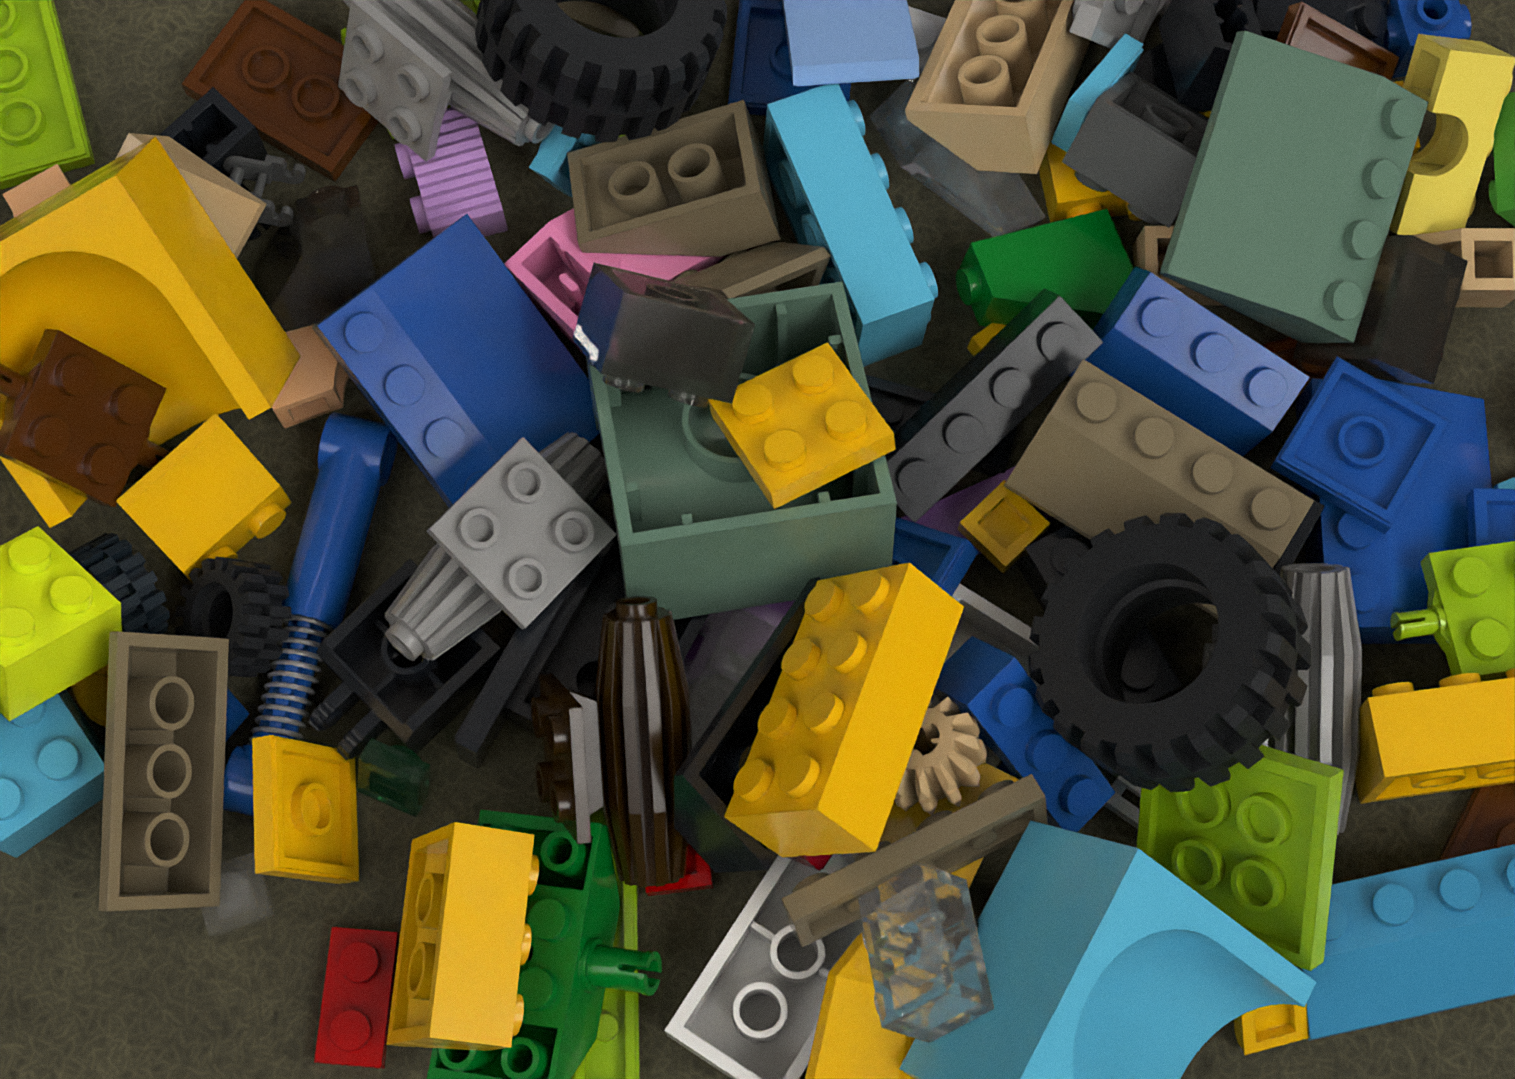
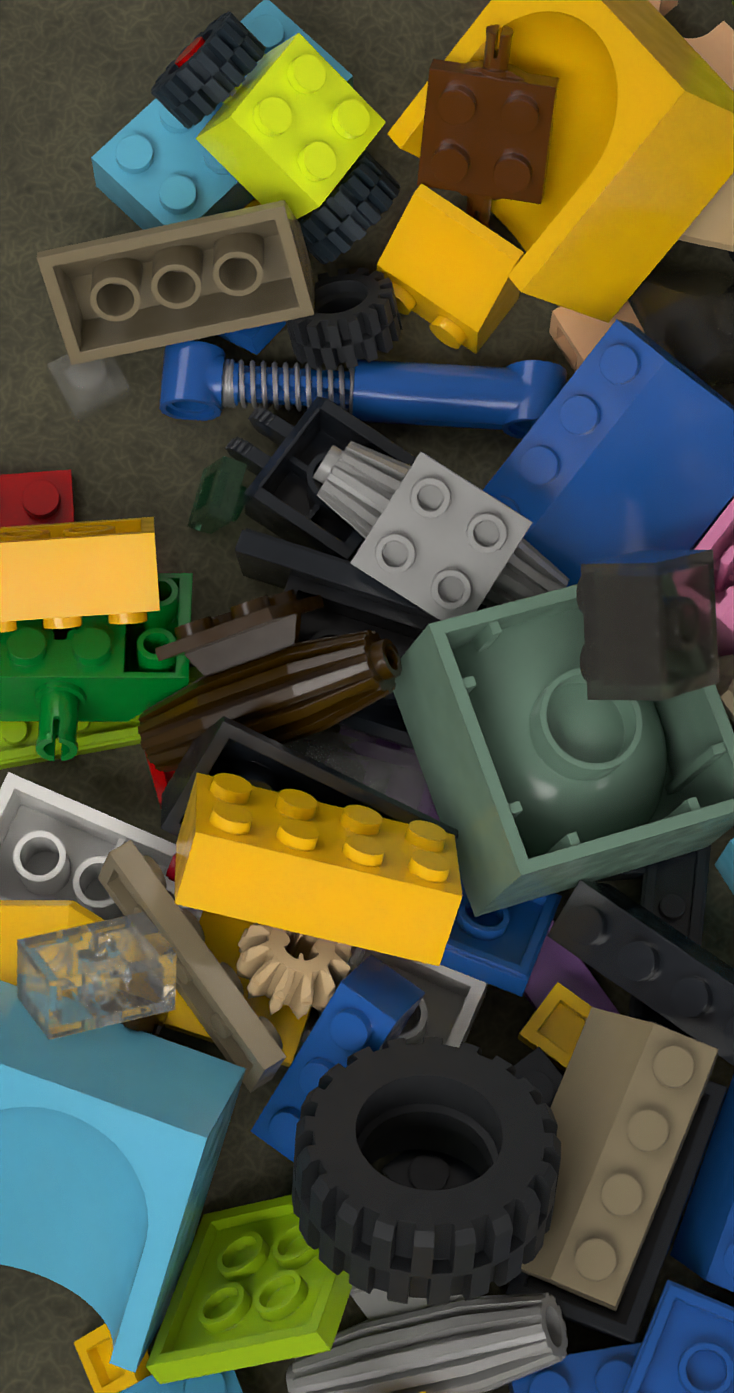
camera: 80 degrees right, 0 degrees up
(304, 811) = (167, 418): yellow tile -> none
(802, 425) = (587, 777): yellow plate -> none

